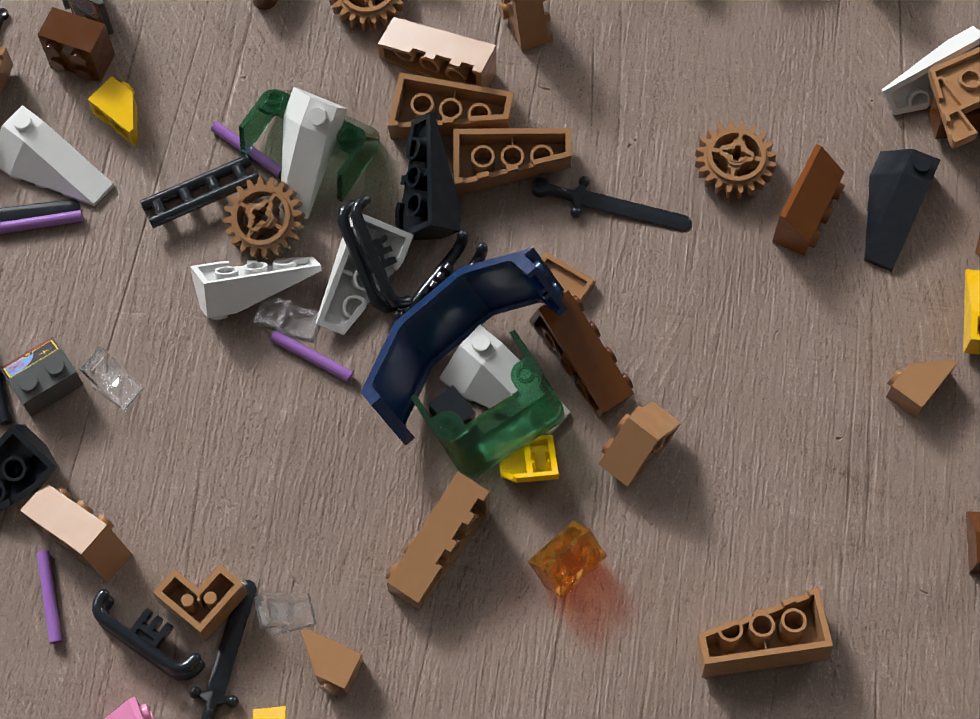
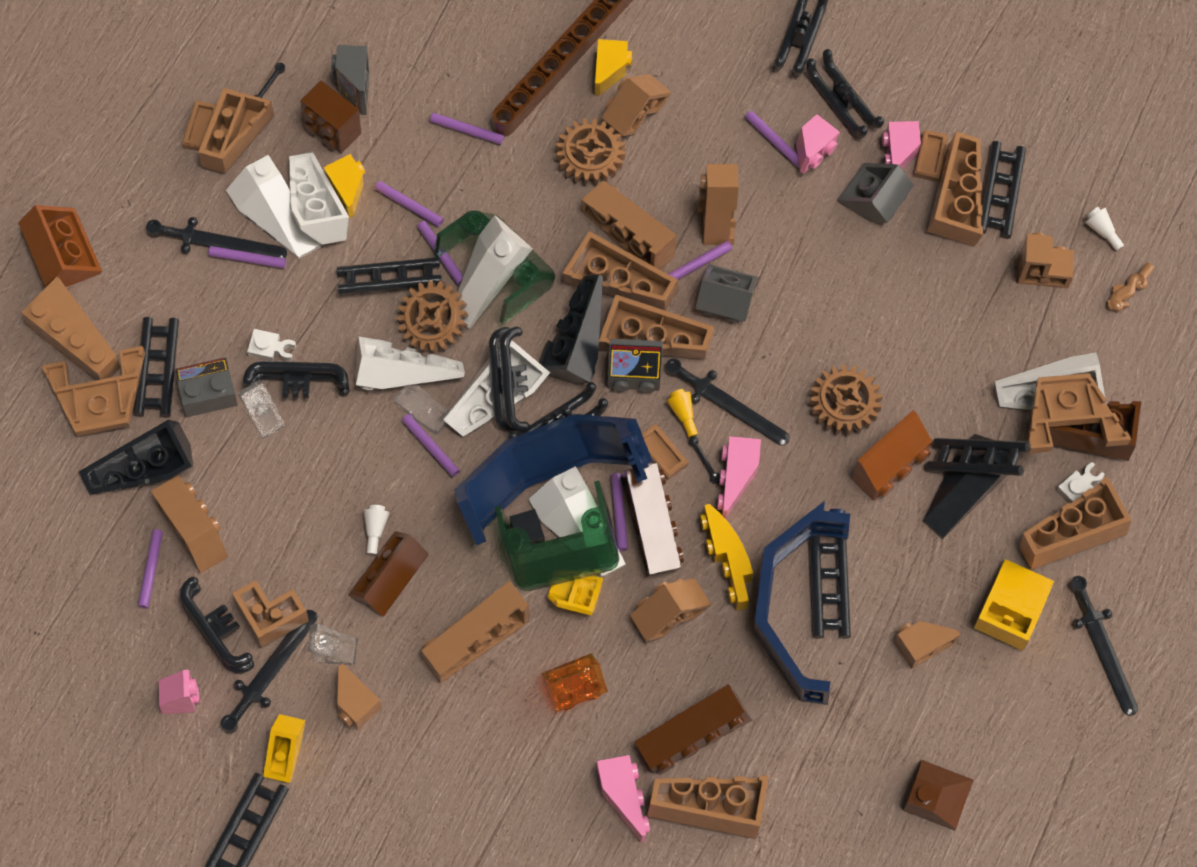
camera: 15 degrees right, 0 degrees up
(92, 138) = (315, 201): none -> white wedge
(93, 309) = (267, 345): none -> white plate
(139, 329) = (297, 375): none -> black piece
(193, 109) = (409, 204): none -> medium lavender piece
(226, 12) = (467, 128): none -> medium lavender bar
(282, 459) = (375, 522): none -> white cone
(318, 509) = (389, 572): none -> reddish brown panel
(500, 196) = (634, 365): none -> slope
(528, 66) = (701, 260): none -> medium lavender bar
(542, 357) = (619, 512): none -> medium lavender piece
(565, 223) = (681, 405): none -> yellow cone
(567, 92) = (726, 293): none -> dark grey slope
(629, 287) = (715, 477): none -> black hinge
(652, 263) = (741, 467): none -> bright pink slope
(662, 660) = (619, 789): none -> bright pink slope
(672, 355) = (727, 547): none -> yellow slope
(715, 565) = (693, 729): none -> reddish brown wedge
(766, 296) = (818, 522): none -> dark blue panel
(790, 377) = (820, 598): none -> black bar
(914, 176) = (987, 466): none -> black bar

